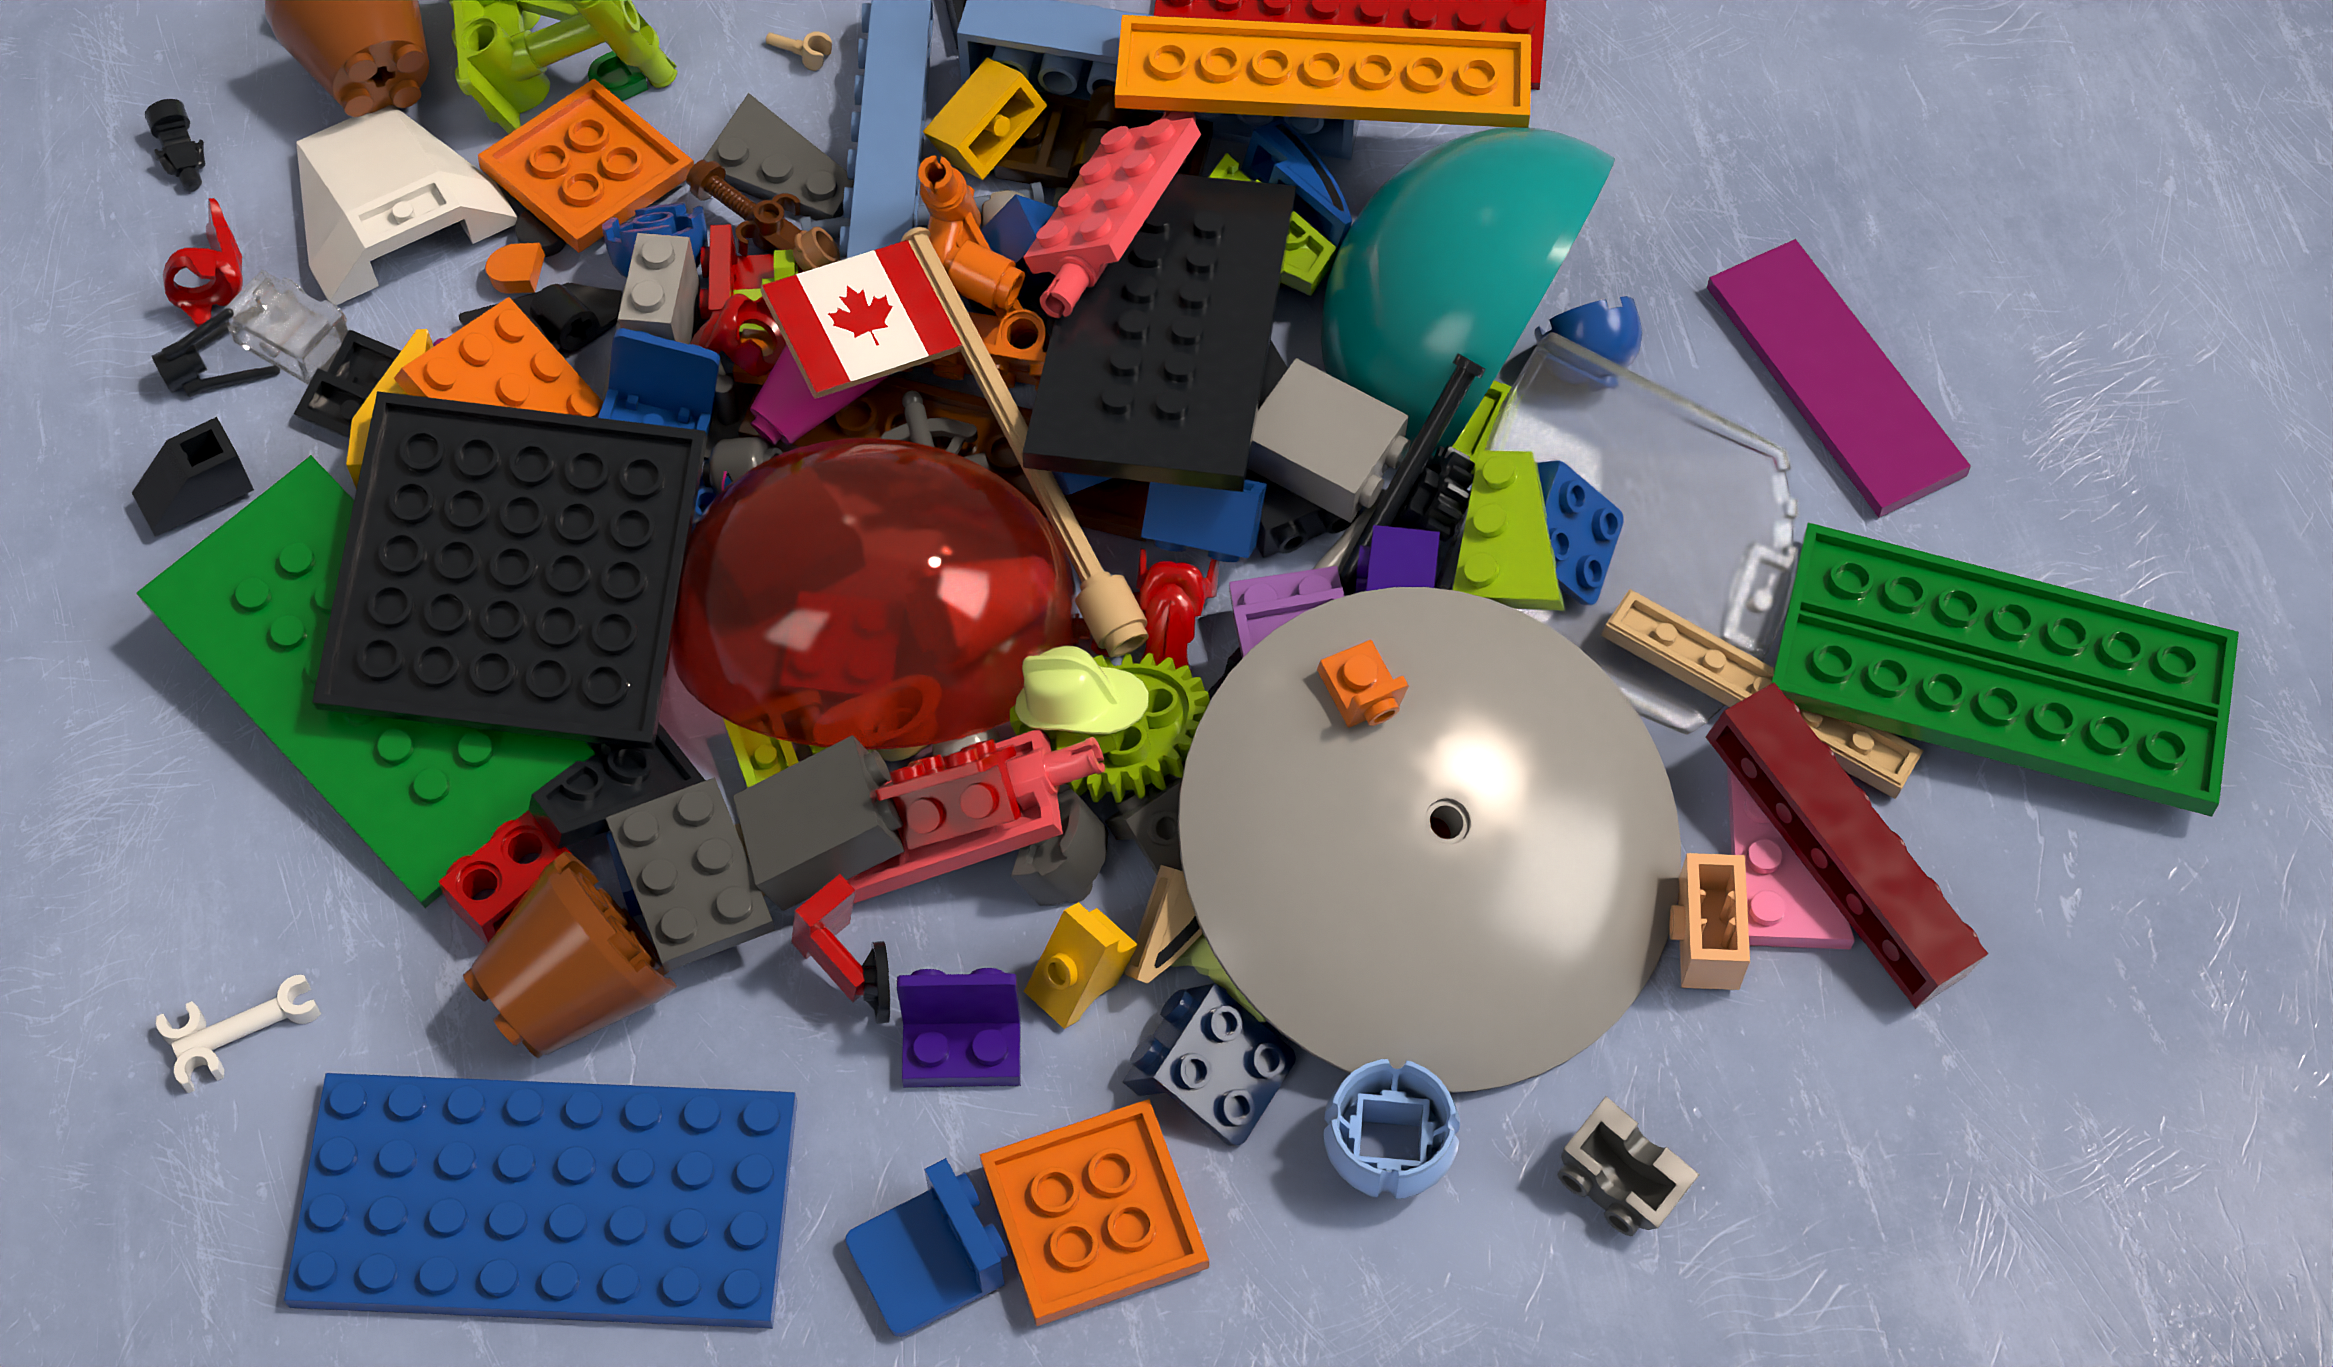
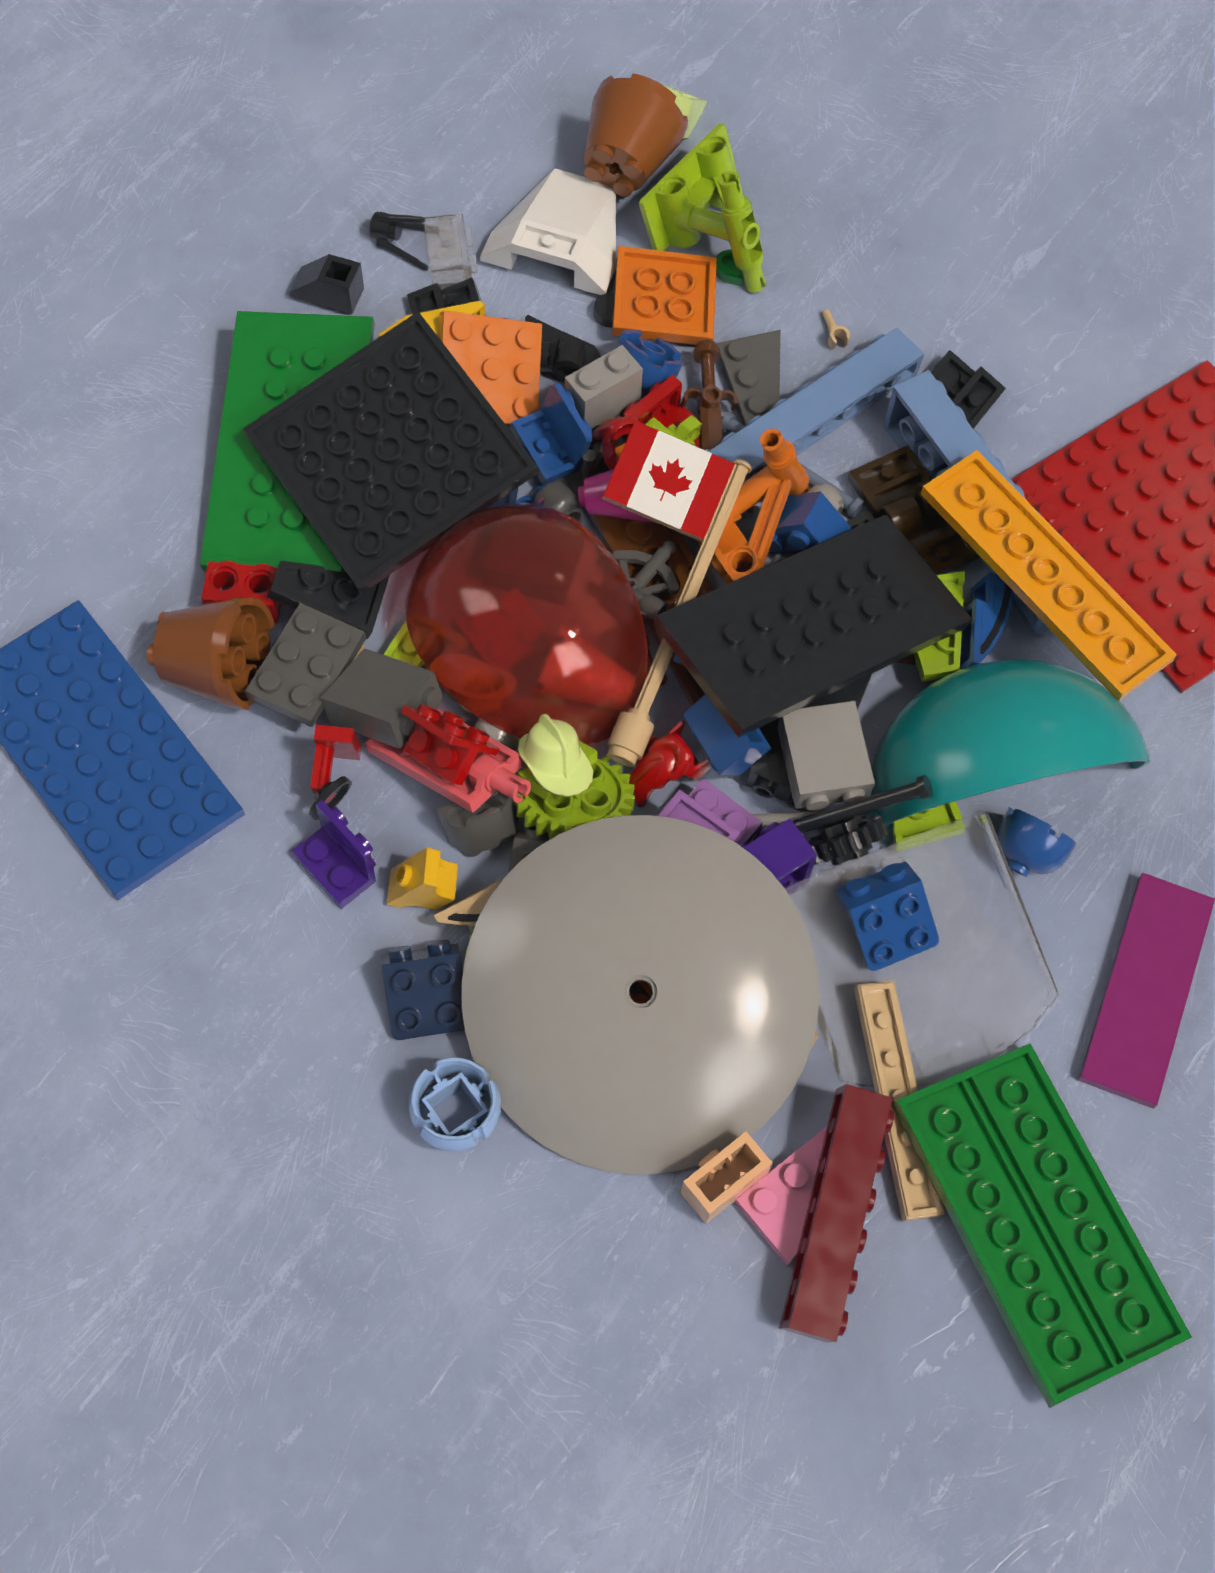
camera: 45 degrees right, 5 degrees up
(179, 154) = (501, 129): black piece -> none
(195, 1041) = (53, 533): white bar -> none
(219, 264) = (453, 198): red hair -> none
(515, 267) = (578, 316): orange tile -> none
(815, 249) = (709, 432): medium nougat plate -> none
(928, 1253) = (207, 937): blue bracket -> none
(984, 275) = (756, 516): orange brick -> none
(985, 118) = (868, 443): yellow brick -> none
(1093, 1212) = (296, 997): orange plate -> none
(1108, 206) = (856, 538): coral plate -> none
(1362, 685) = (669, 884): orange bracket -> none
(1507, 536) = (844, 891): lime wing -> none
(1624, 1170) = (540, 1241): dark grey cylinder -> none

